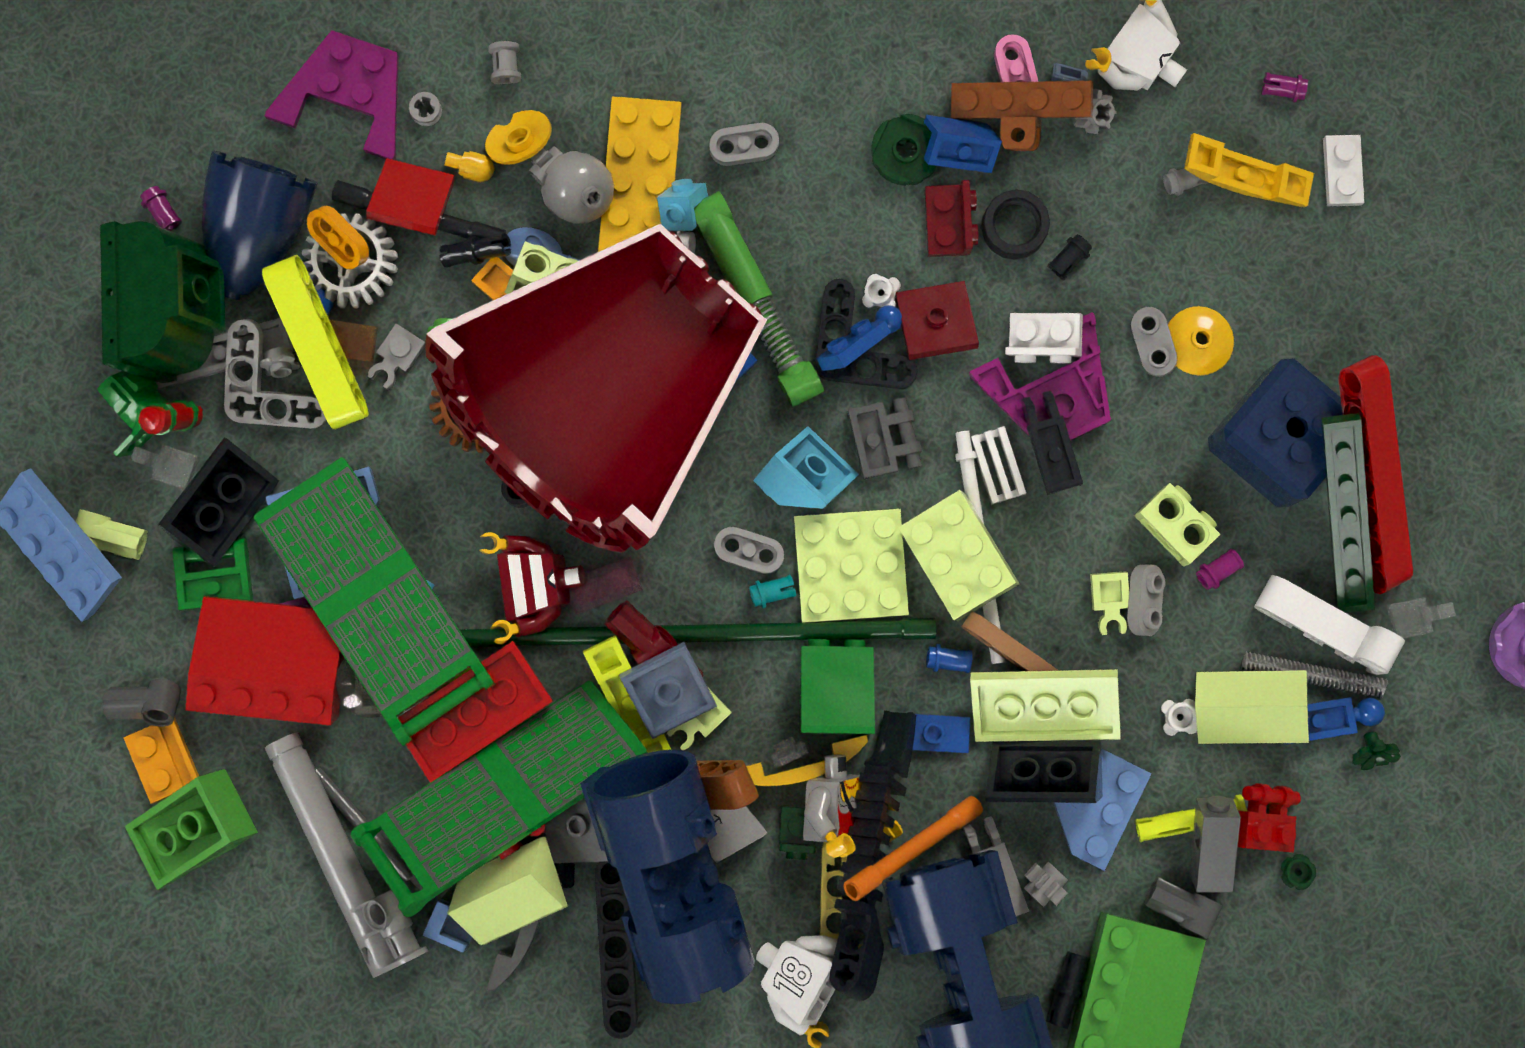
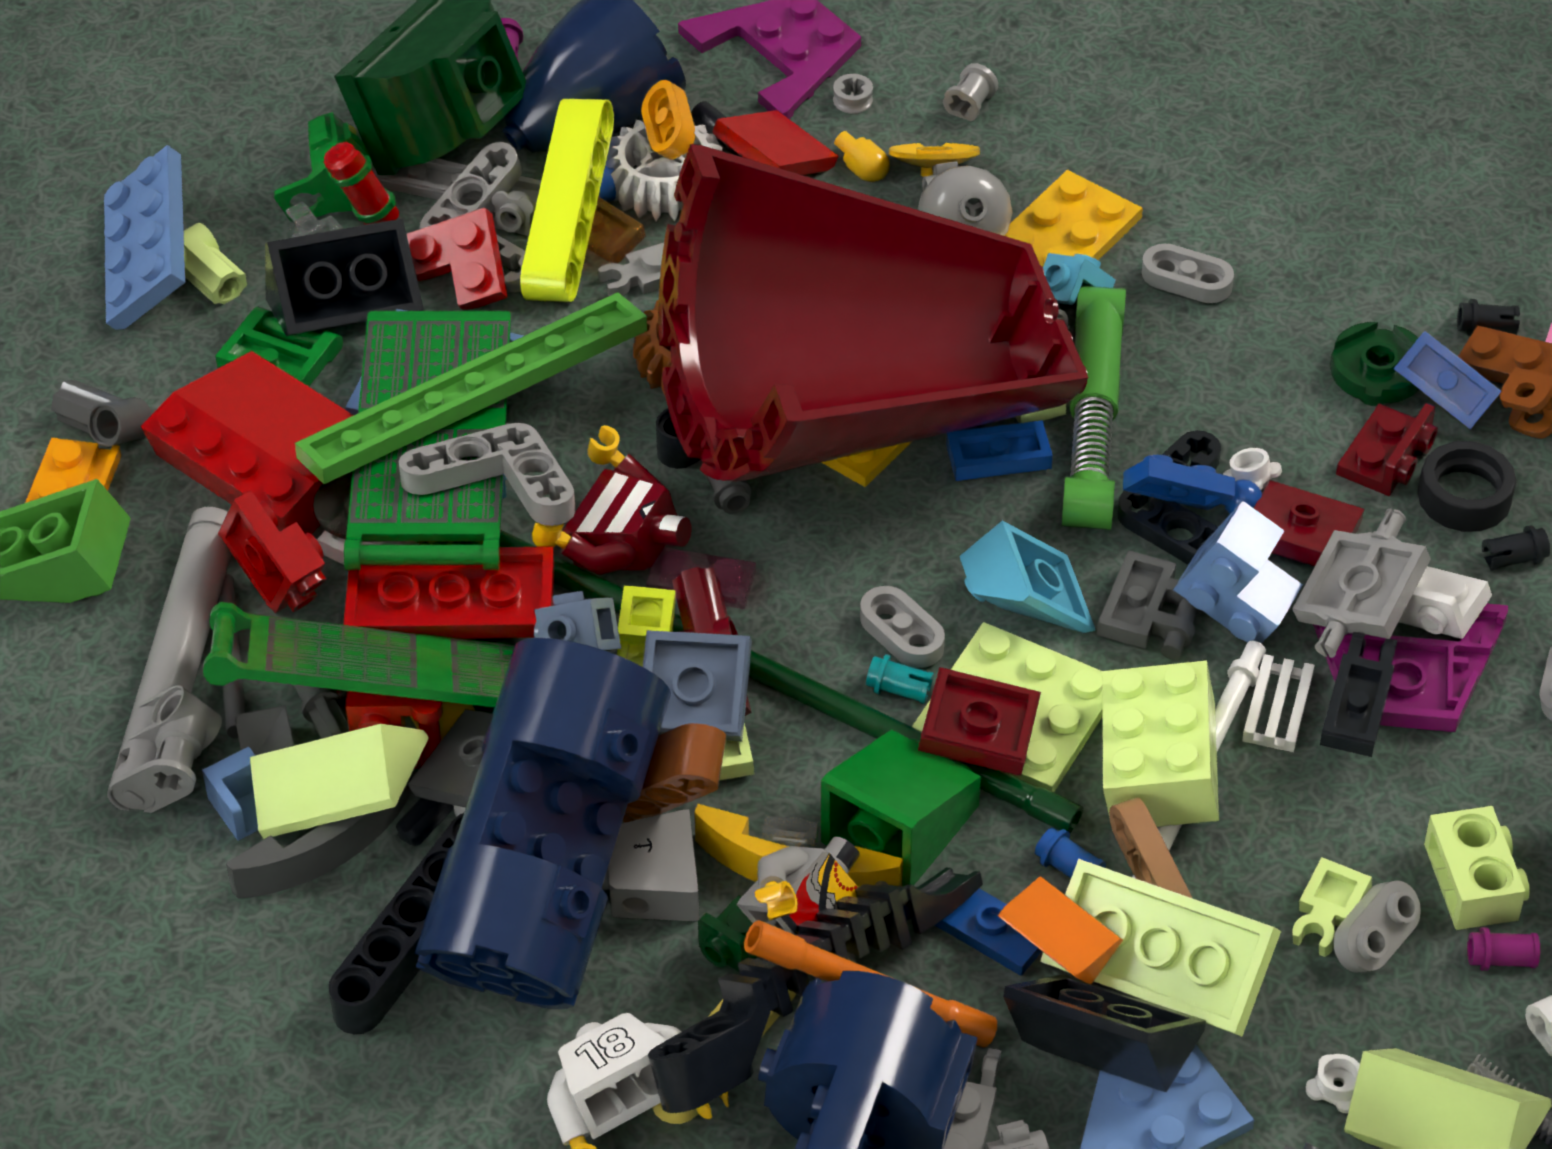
camera: 40 degrees right, 35 degrees down
(278, 420) = (468, 250): none -> plate
(354, 758) = (280, 564): none -> red plate
(376, 552) = (469, 388): none -> bright green plate
(449, 599) = (501, 450): none -> light grey beam
(576, 702) = (579, 621): none -> sand blue brick
(848, 607) = (979, 721): none -> dark red plate
(933, 401) = (1235, 578): none -> medium blue brick
(948, 69) = (1489, 316): none -> black pin
(983, 728) = (1061, 929): none -> orange slope
(1011, 365) = (1361, 583): none -> light grey plate

